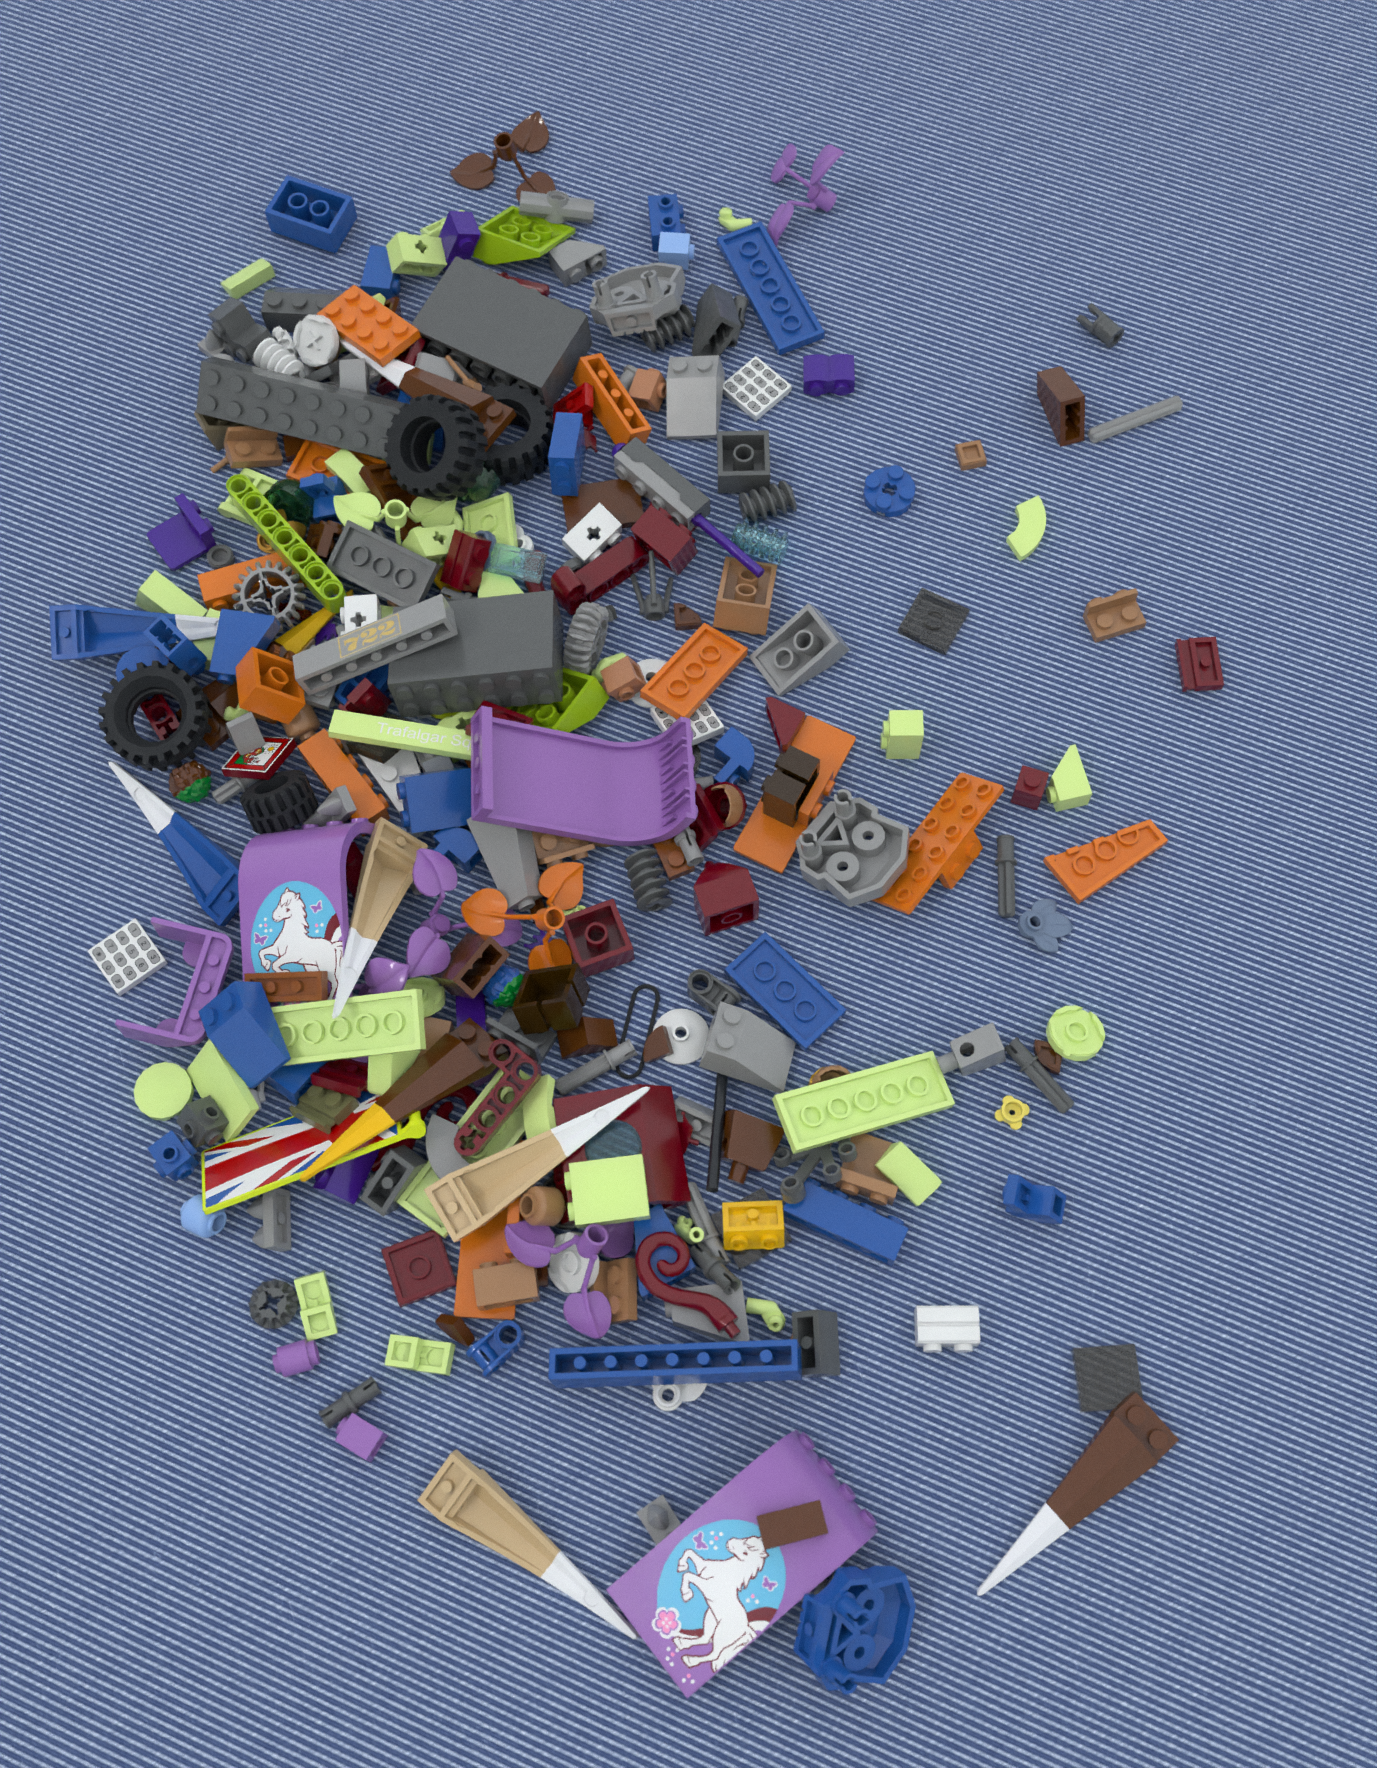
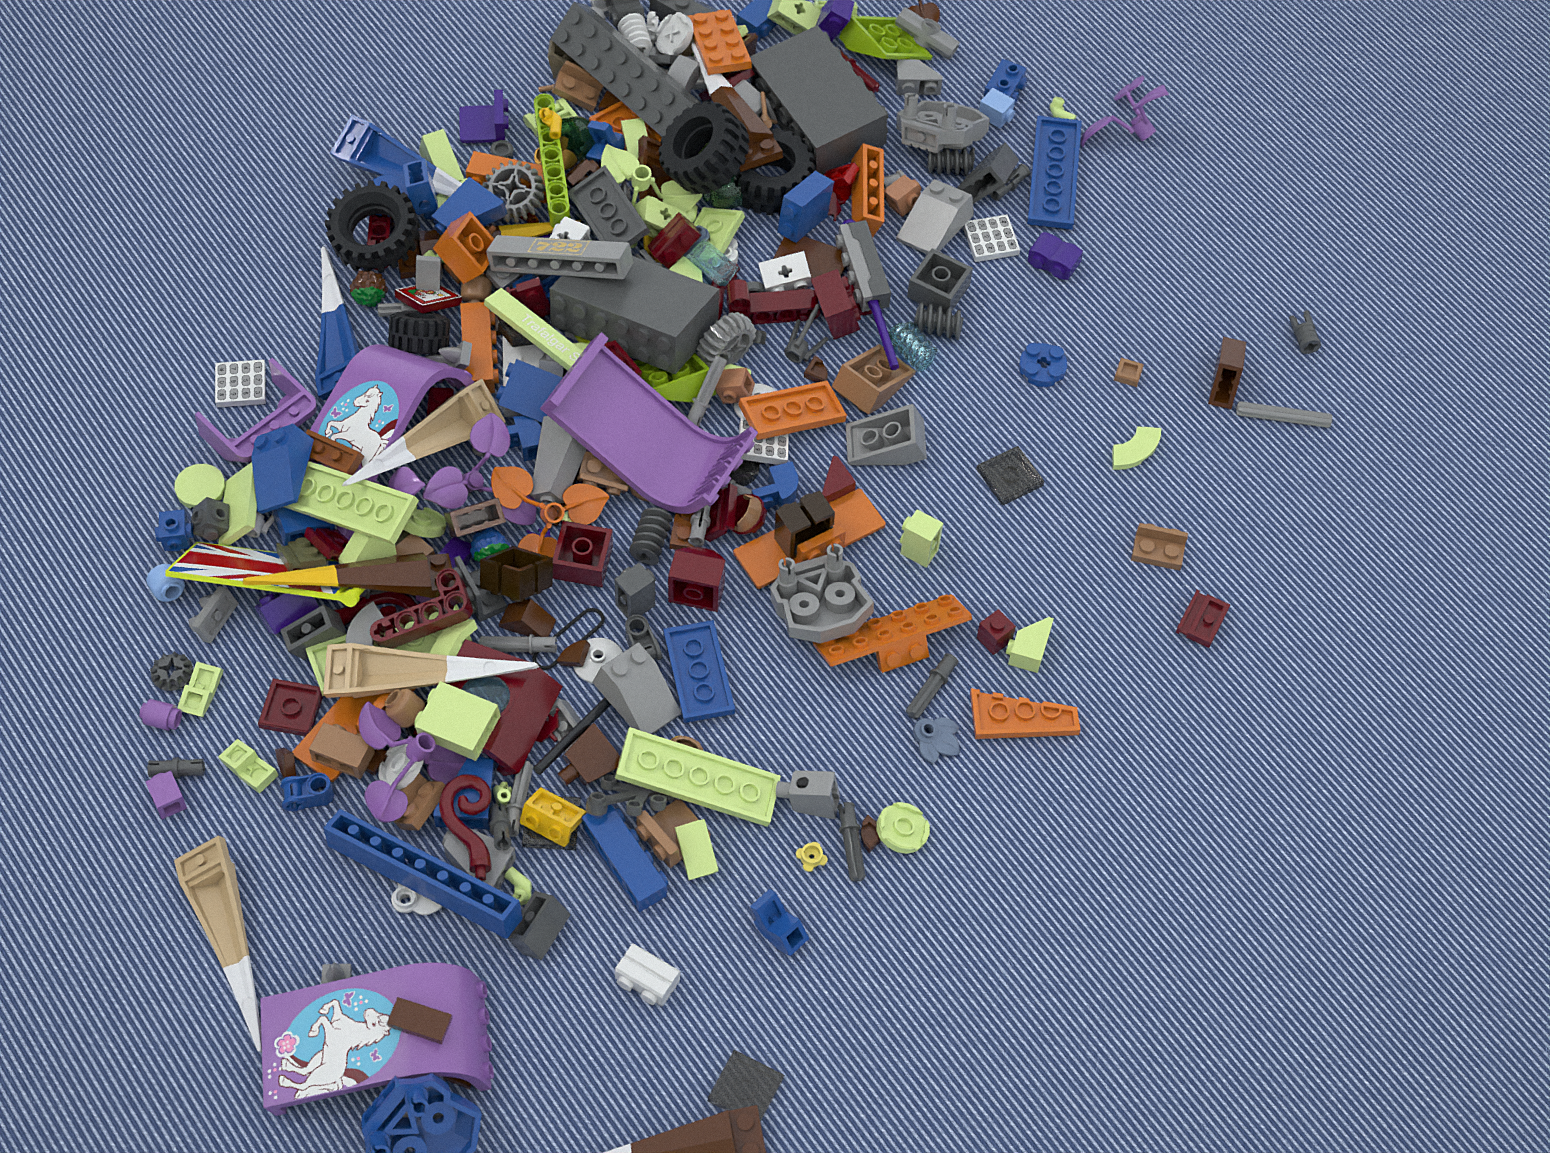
camera: 25 degrees right, 10 degrees down
(264, 501) = (553, 121): none -> yellow arm
(603, 700) = (701, 403): none -> light grey axle
(675, 947) = (635, 590): none -> dark grey brick

